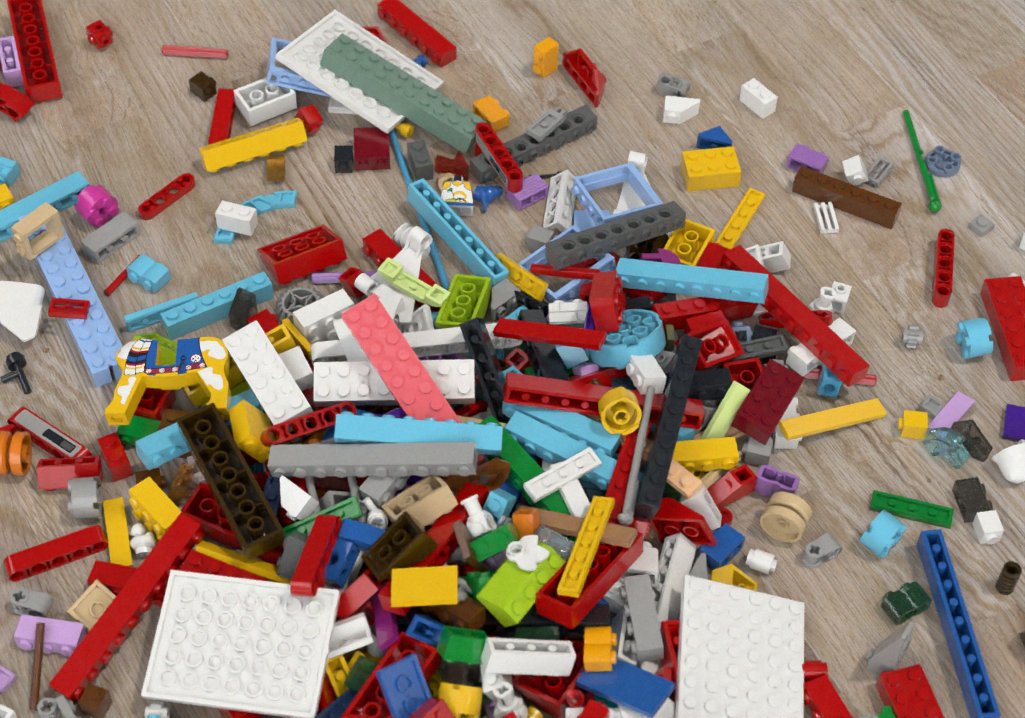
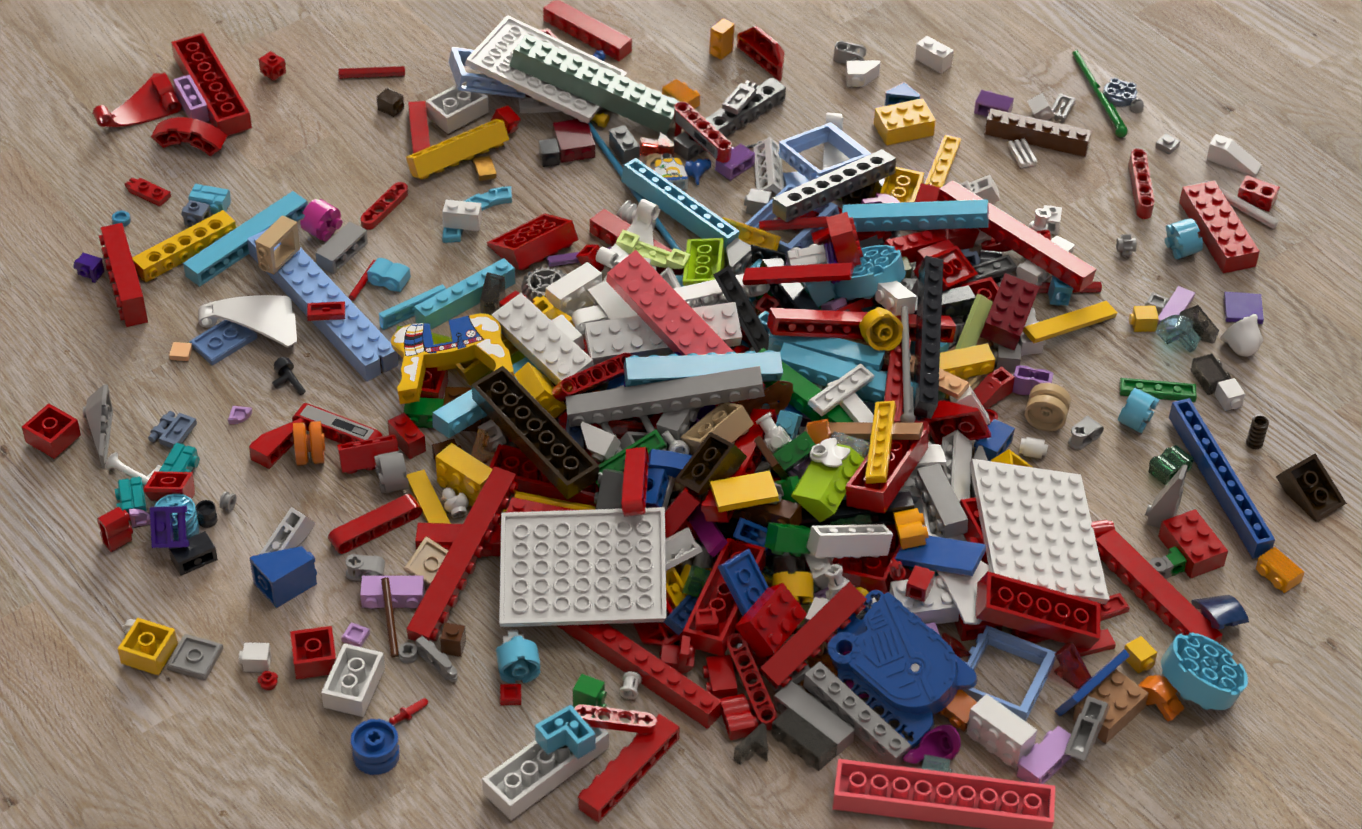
camera: 10 degrees left, 5 degrees down
(957, 179) = (1137, 105): none -> light grey hinge

